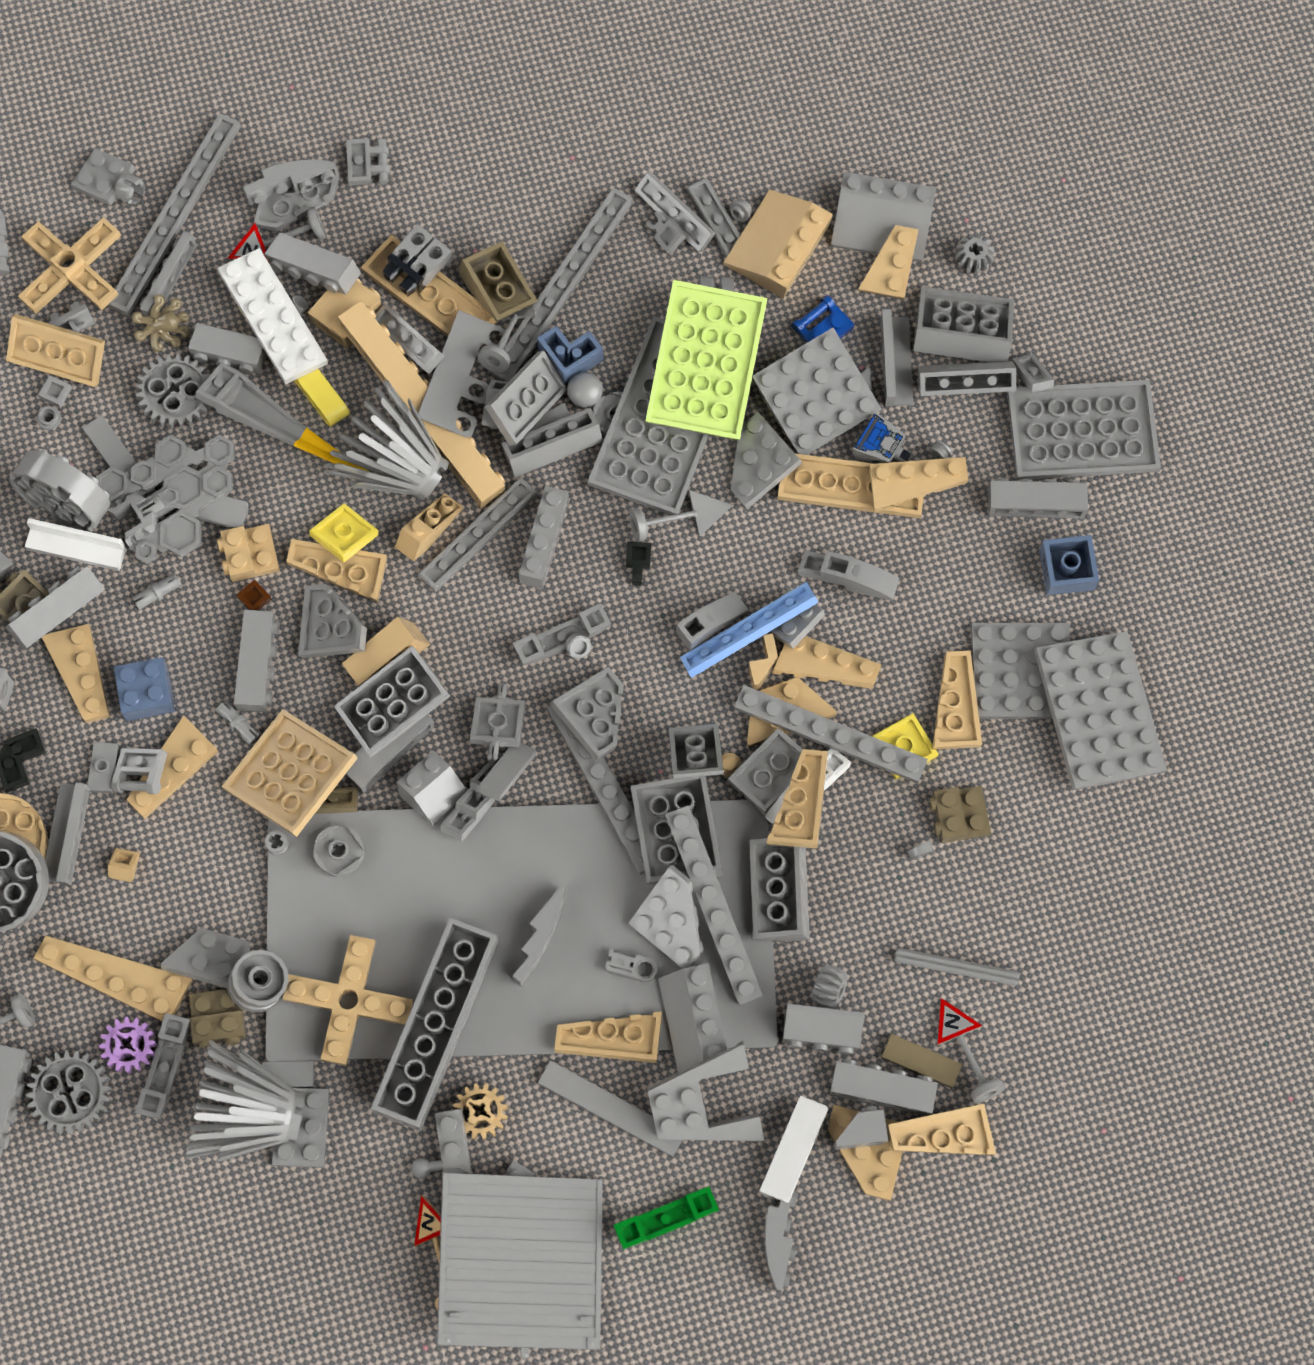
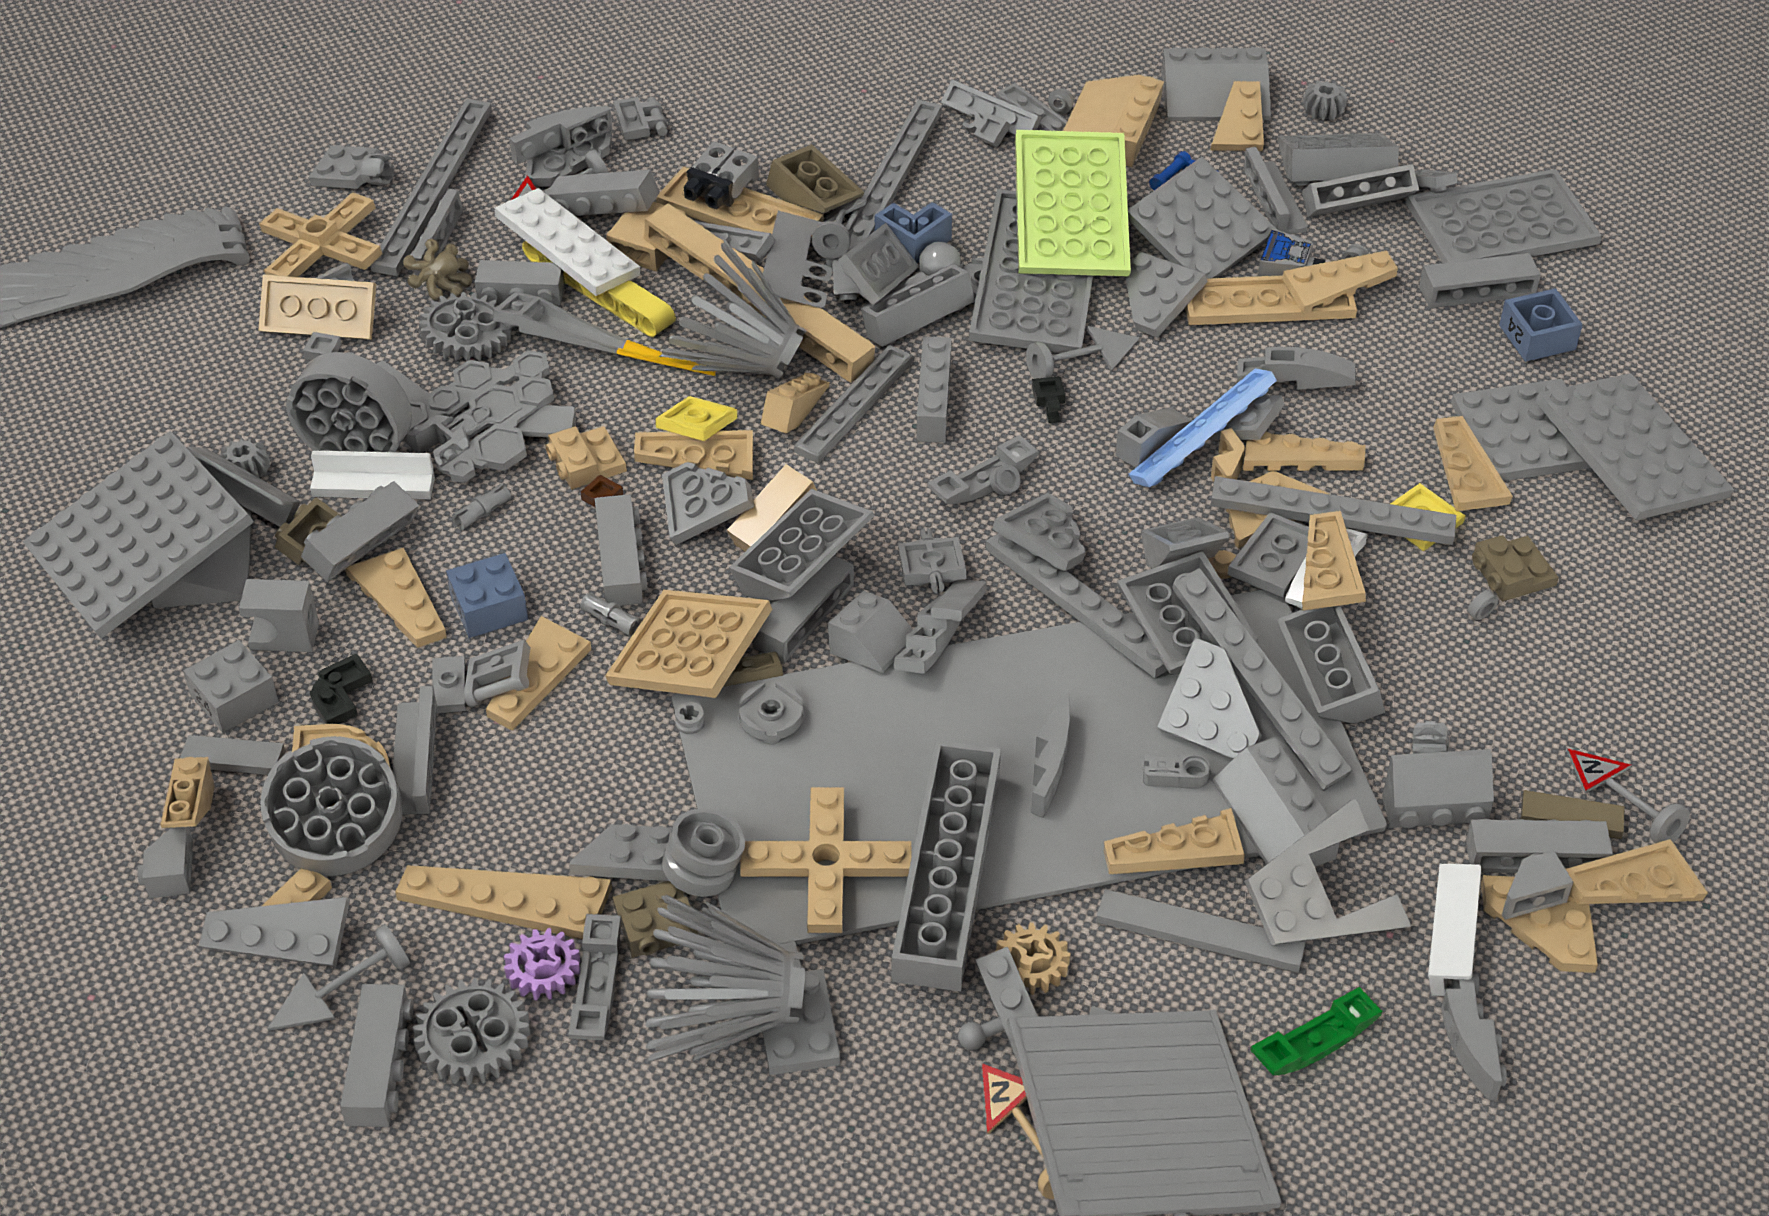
camera: 10 degrees left, 25 degrees down
(123, 865) = (494, 779): tan slope -> none
(957, 966) = (1574, 712): light grey axle -> none

